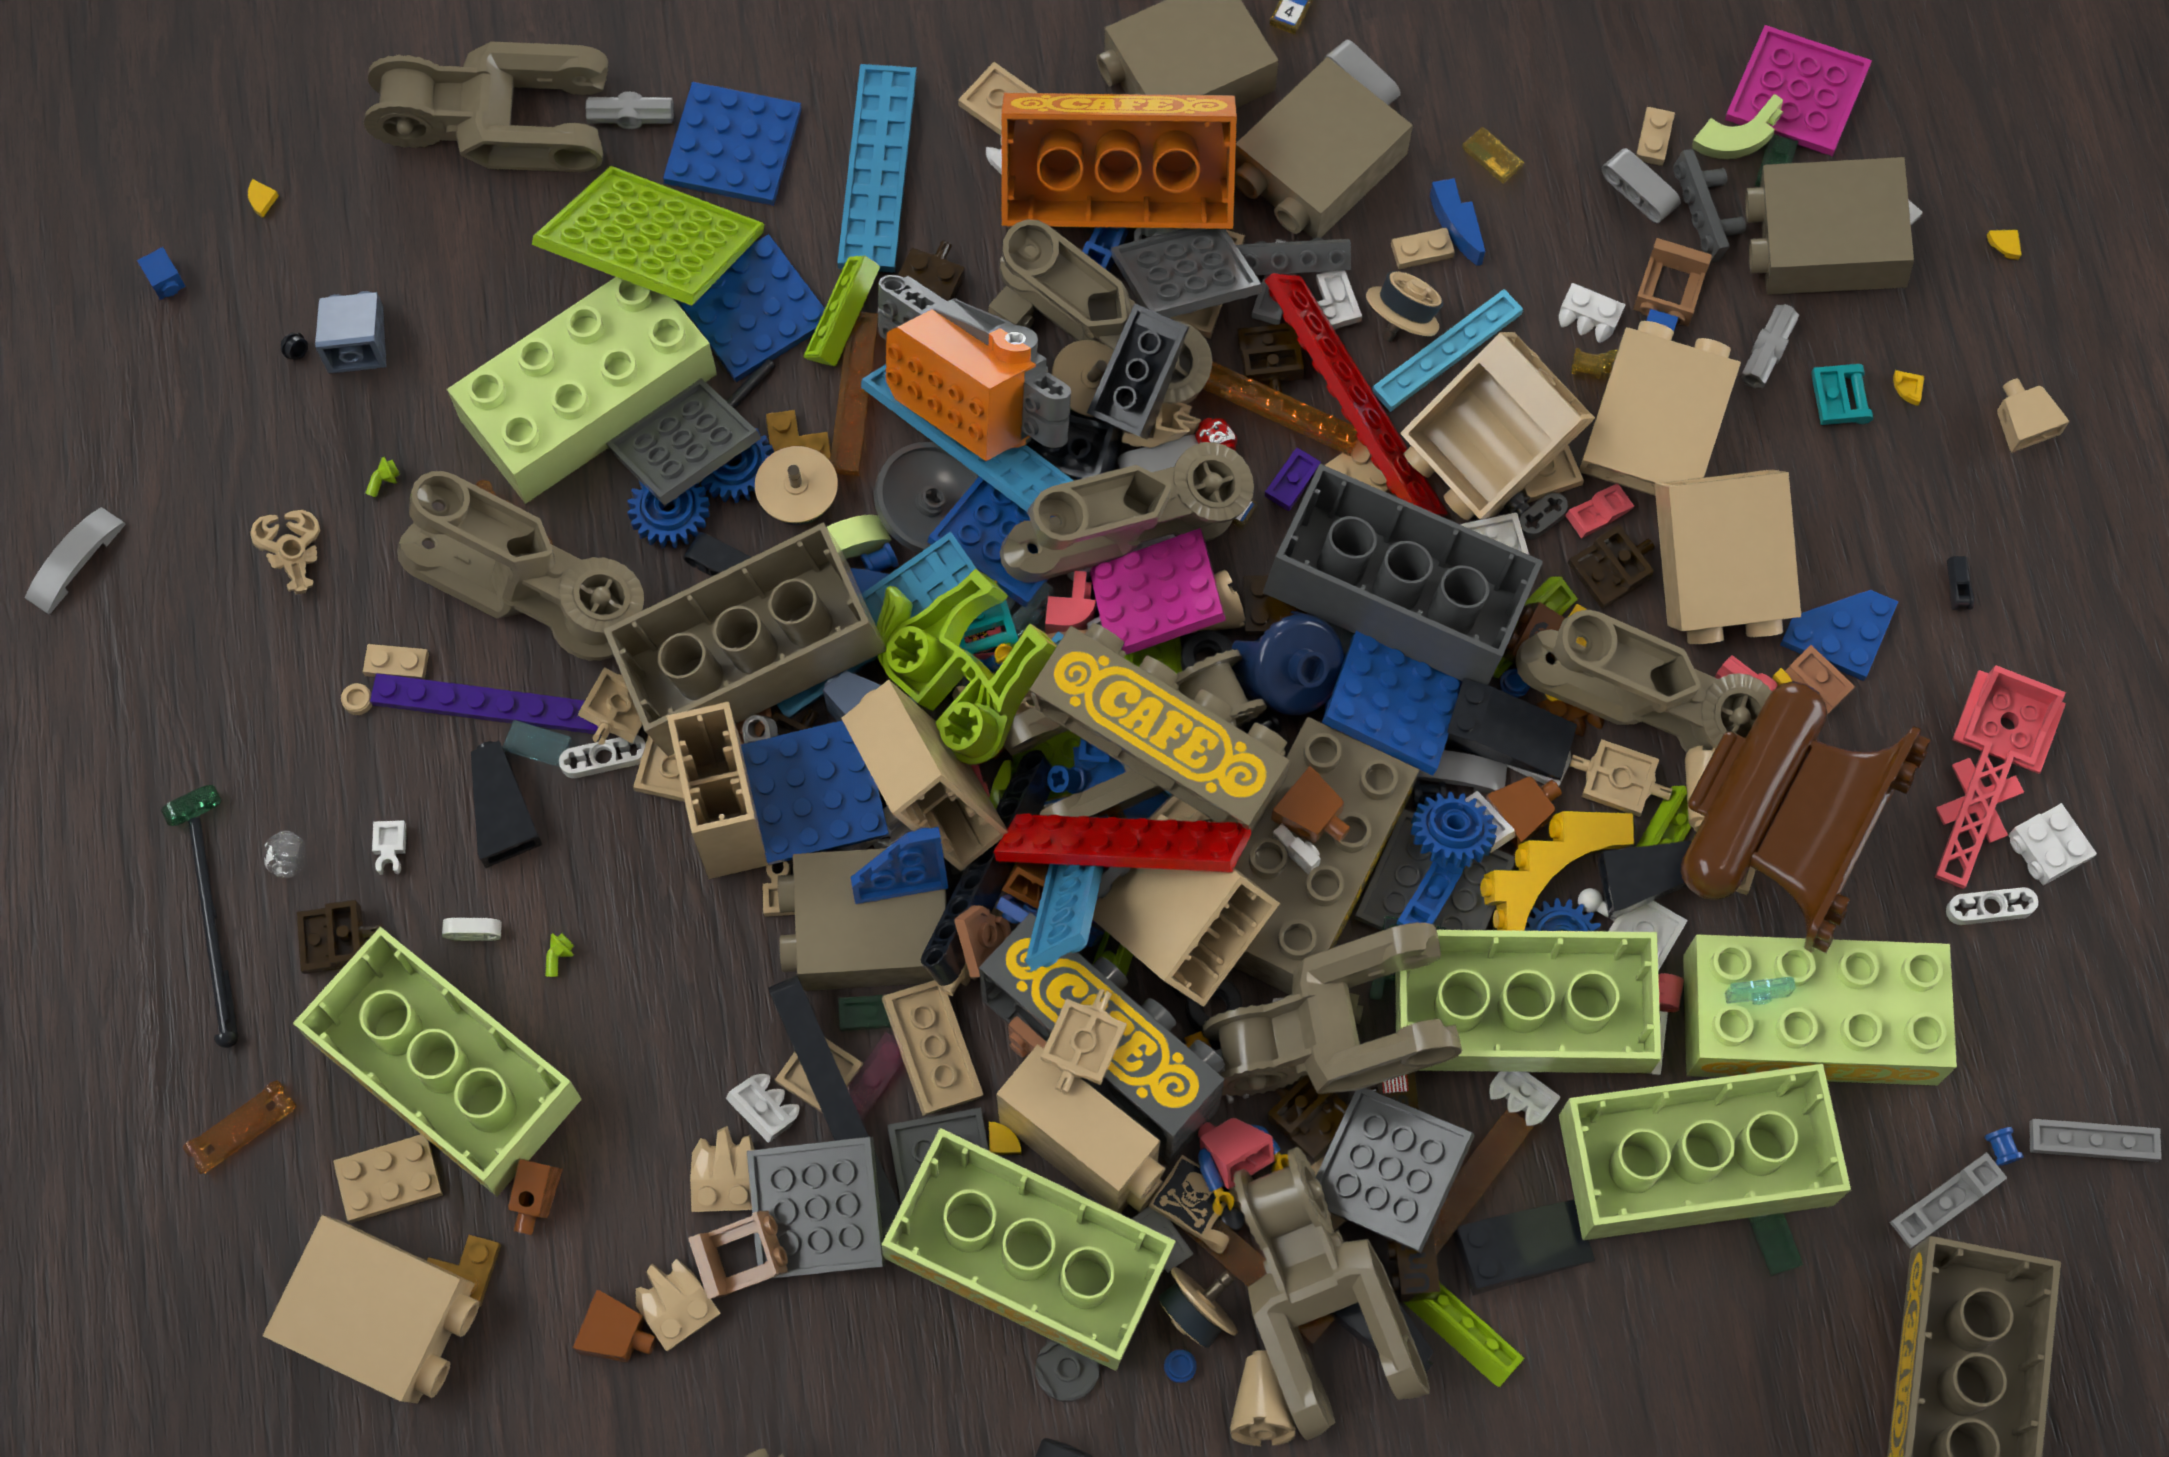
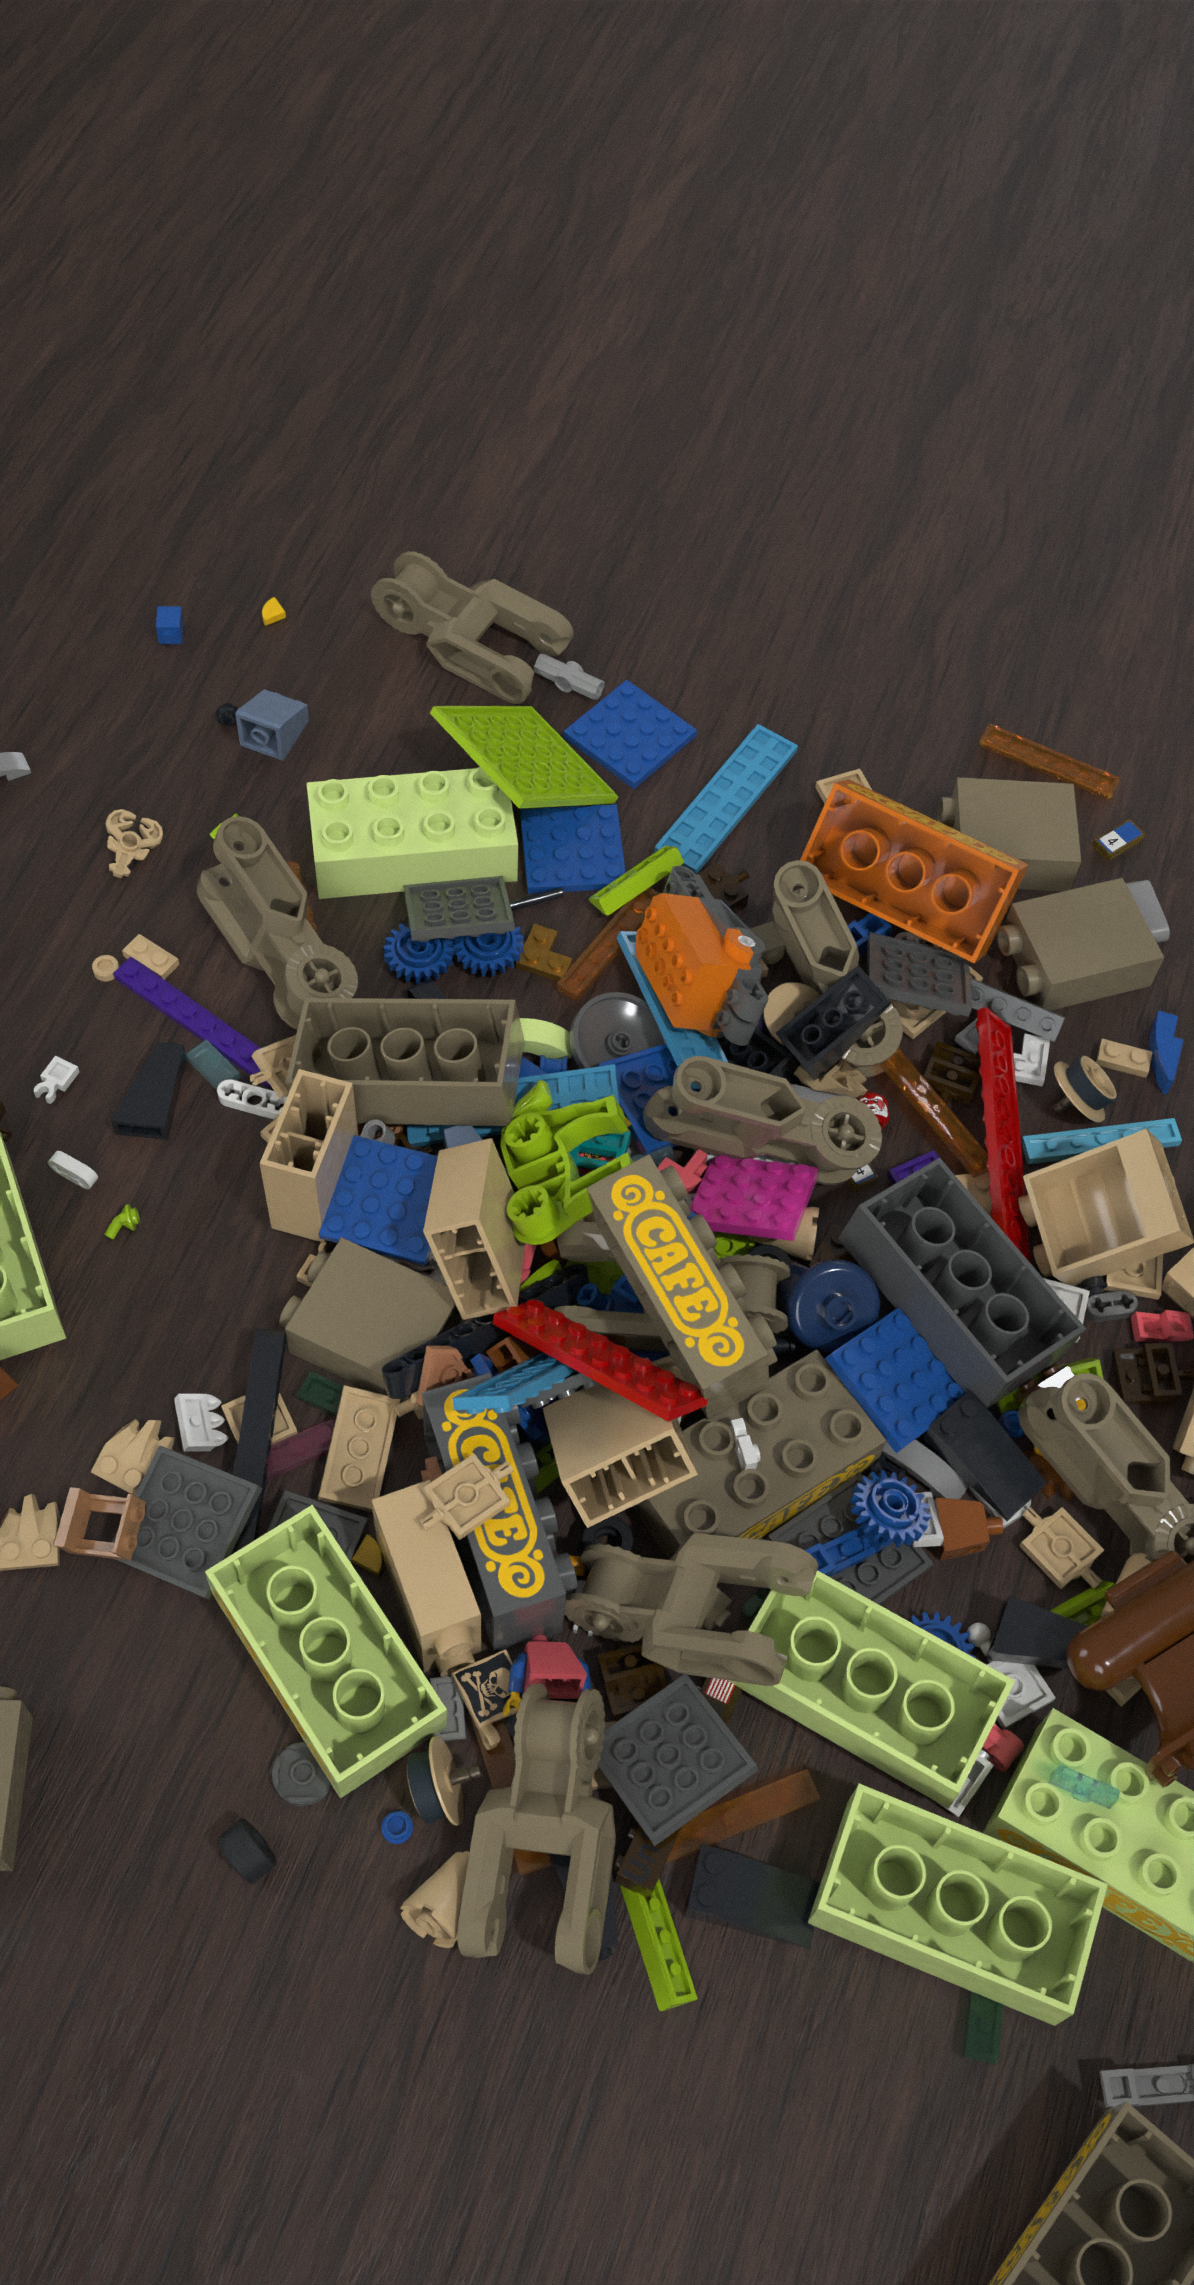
camera: 25 degrees right, 10 degrees down
(796, 485) = (523, 977): tan piece -> none
(905, 868) = (415, 1288): blue plate -> none
(1311, 809) = (773, 1418): dark orange torso -> none
(1524, 1094) = (827, 1764): white plate -> none
(1539, 861) = (993, 1573): yellow arch -> none

